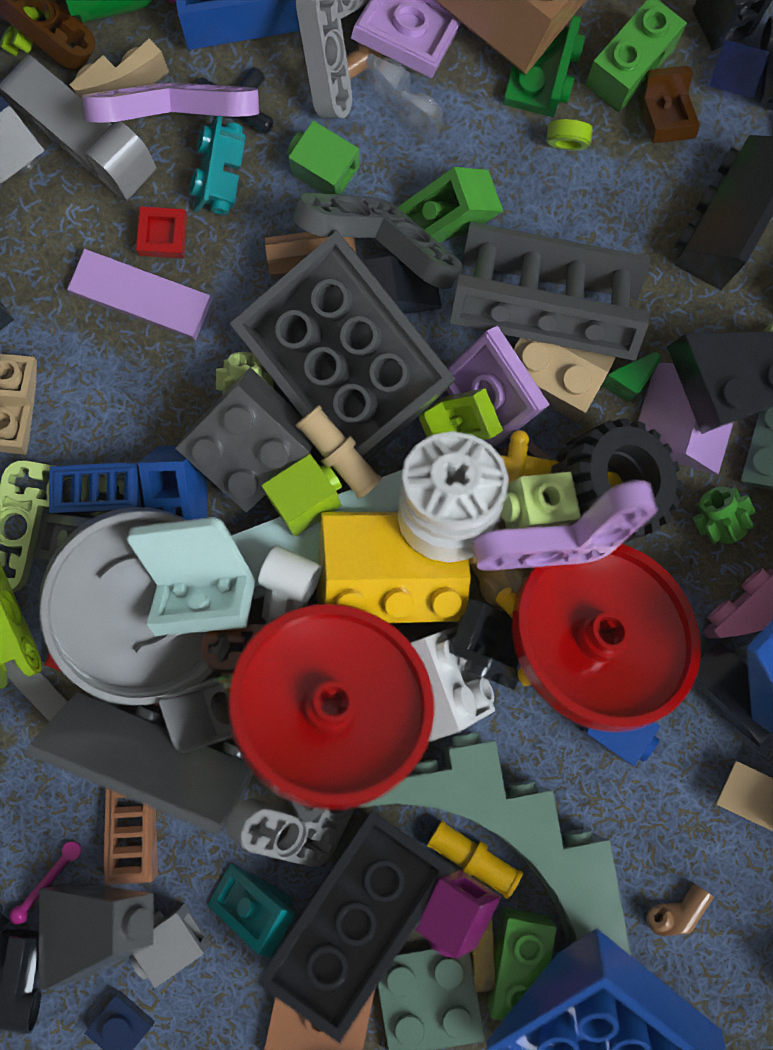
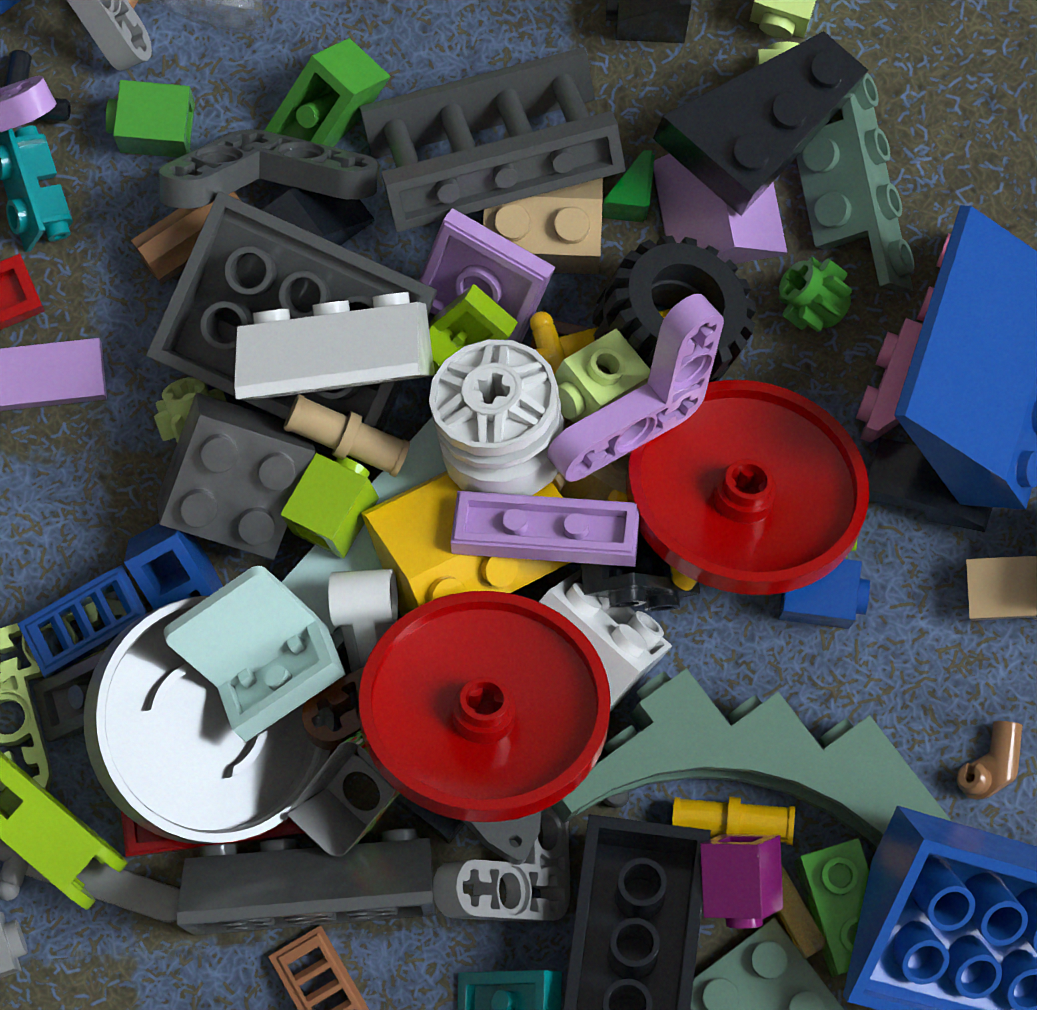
camera: 30 degrees left, 5 degrees down
(357, 385) = (333, 348): none -> white slope
(445, 593) = (545, 528): none -> lavender tile

